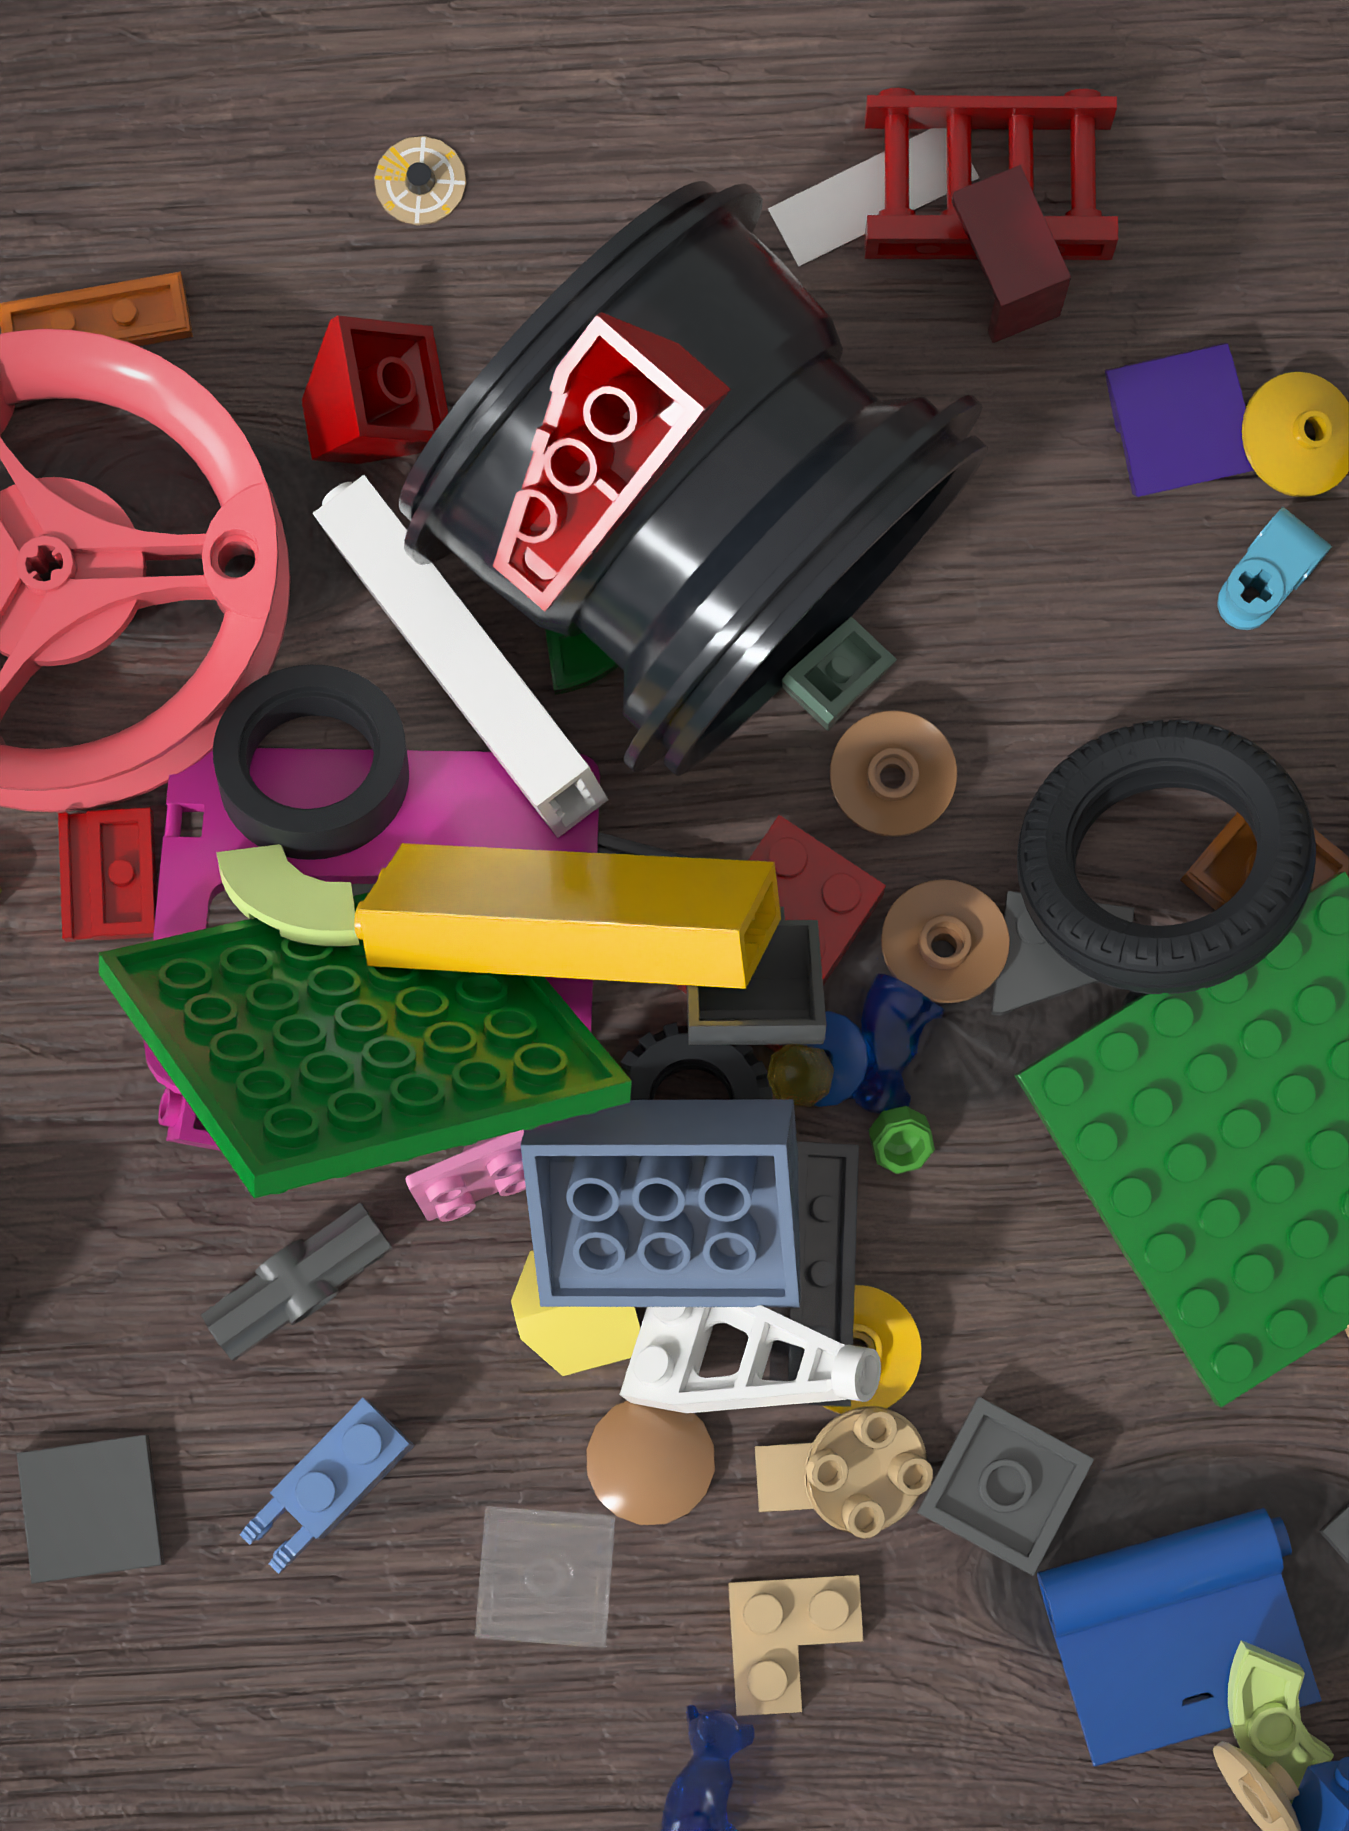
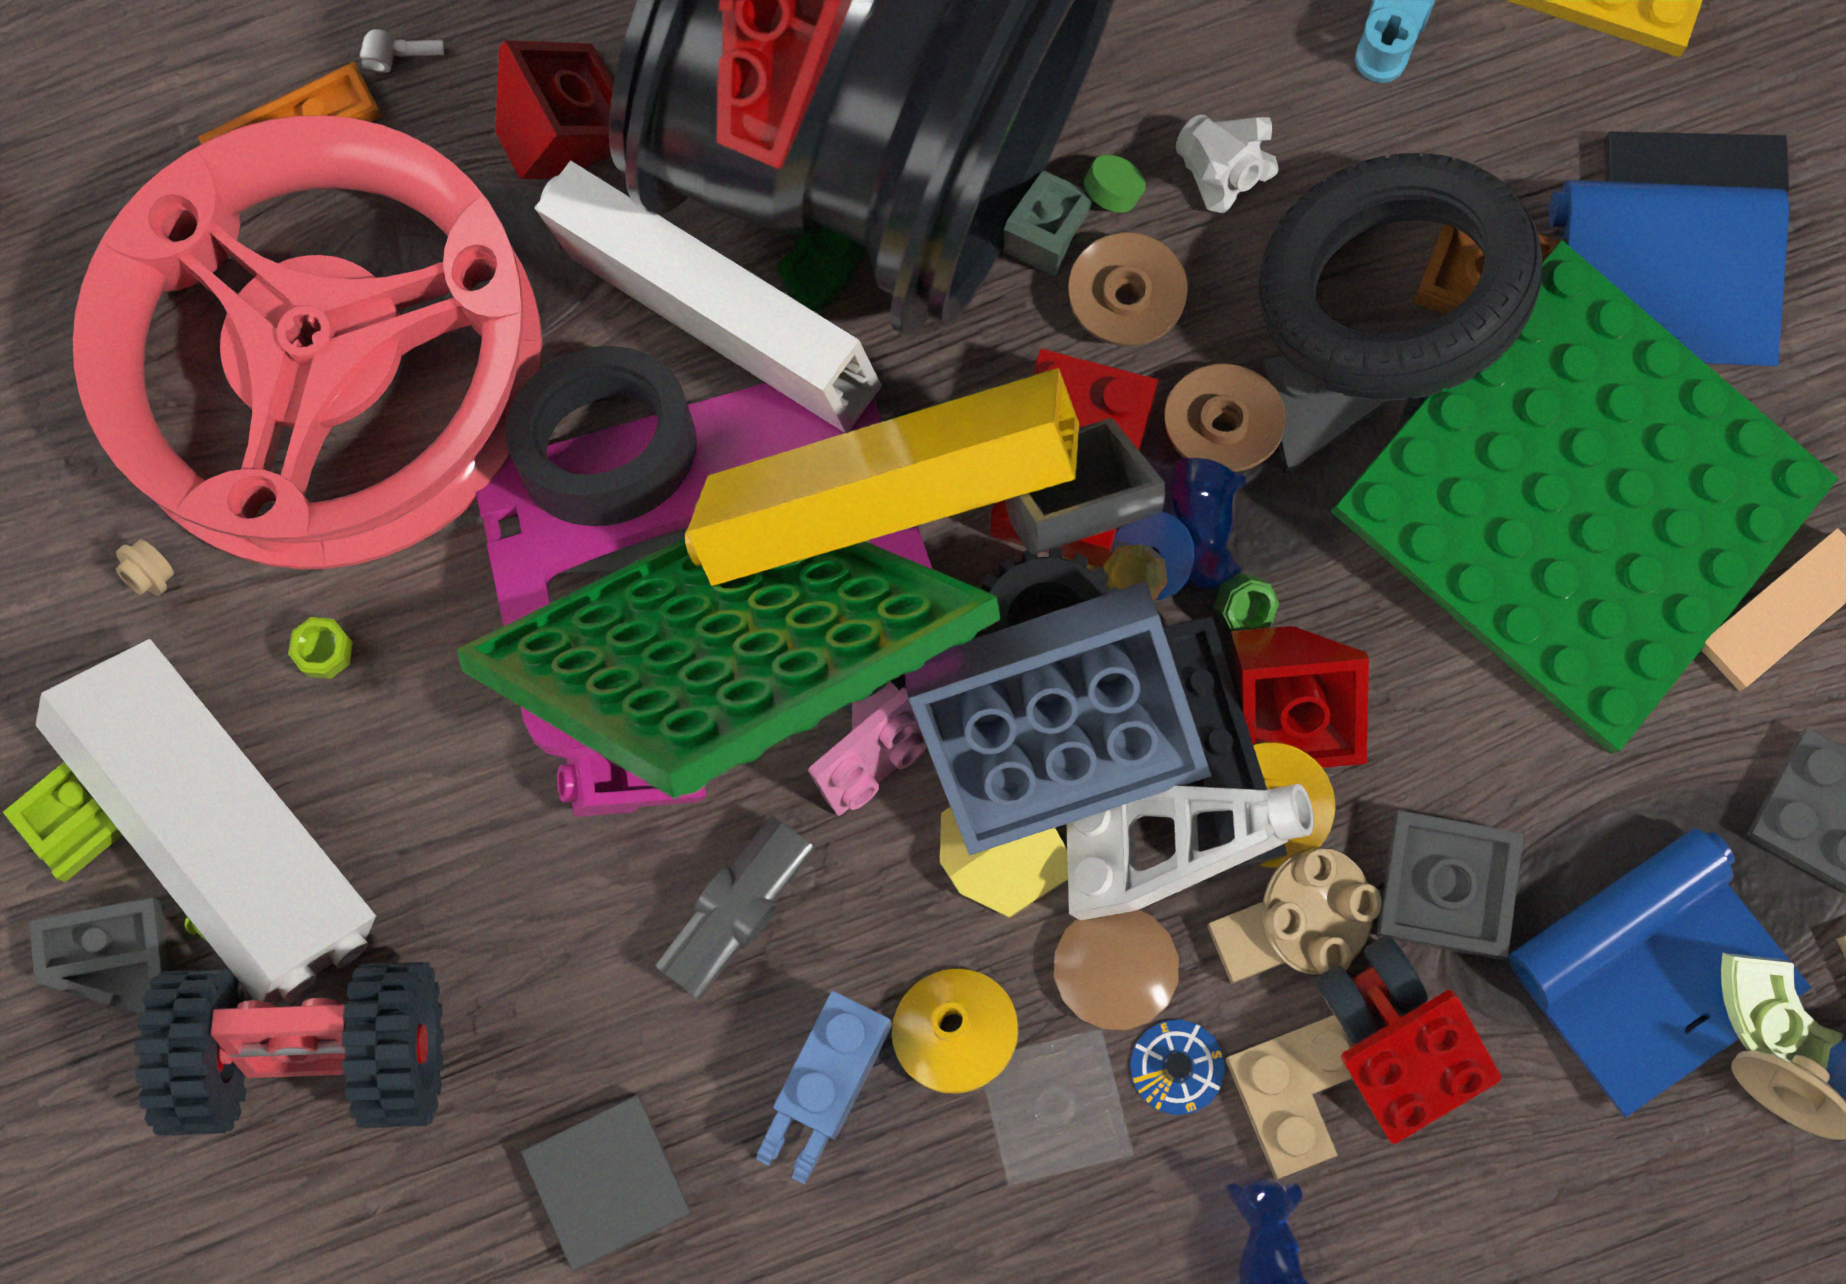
camera: 15 degrees left, 5 degrees down
(107, 874) = (444, 593): red plate -> none
(212, 264) = (381, 47): none -> white hand
(280, 895) = (608, 552): yellowish green tile -> none
(478, 1500) = (960, 1058): none -> yellow dish
(678, 1575) = (1177, 1067): none -> blue piece
(909, 1649) = (1417, 1062): none -> red plate
(919, 654) = (1114, 183): none -> bright green tile
(923, 1249) = (1303, 692): none -> red slope
(1041, 665) = (1226, 157): none -> white rock

